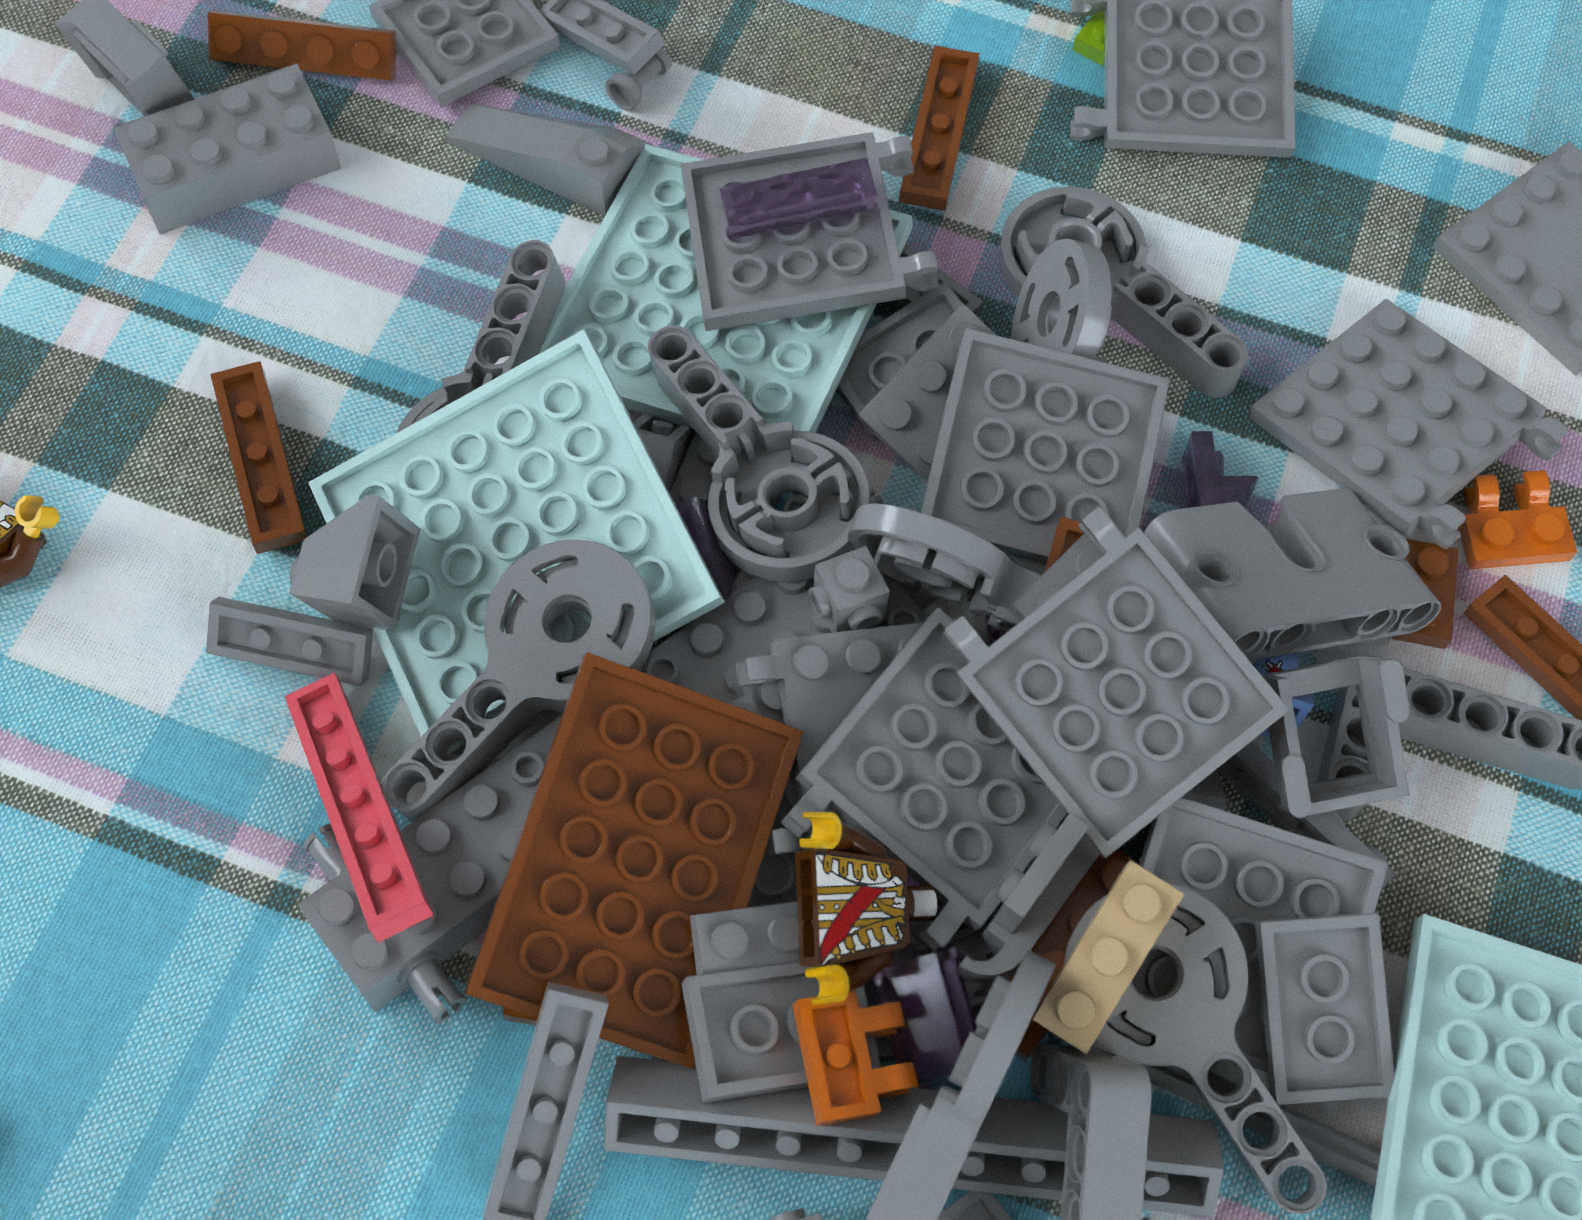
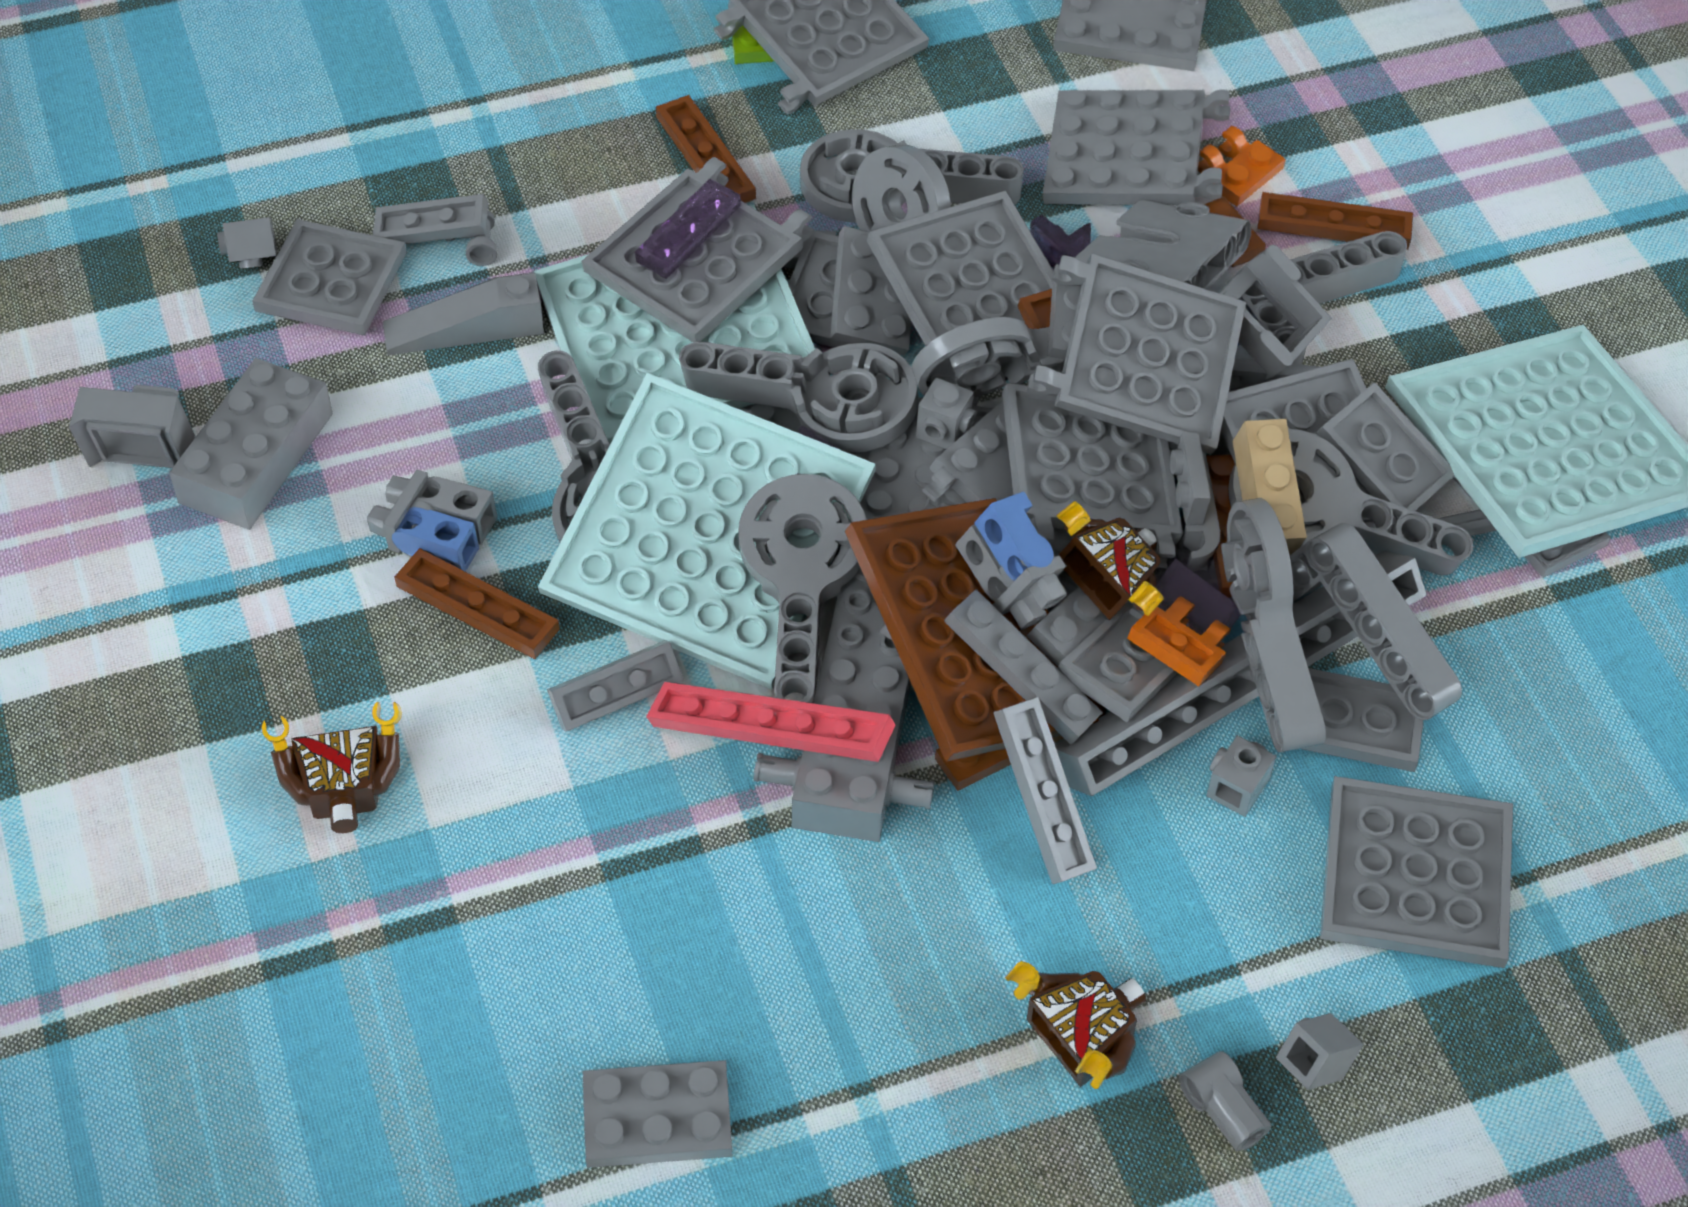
camera: 40 degrees left, 10 degrees down
(304, 322) = (434, 516): none -> hips
(310, 44) = (231, 351): dark orange plate -> none
(357, 565) = (641, 603): light grey slope -> none
(646, 951) = (1023, 665): none -> light grey plate
(722, 826) = (1013, 561): none -> hips

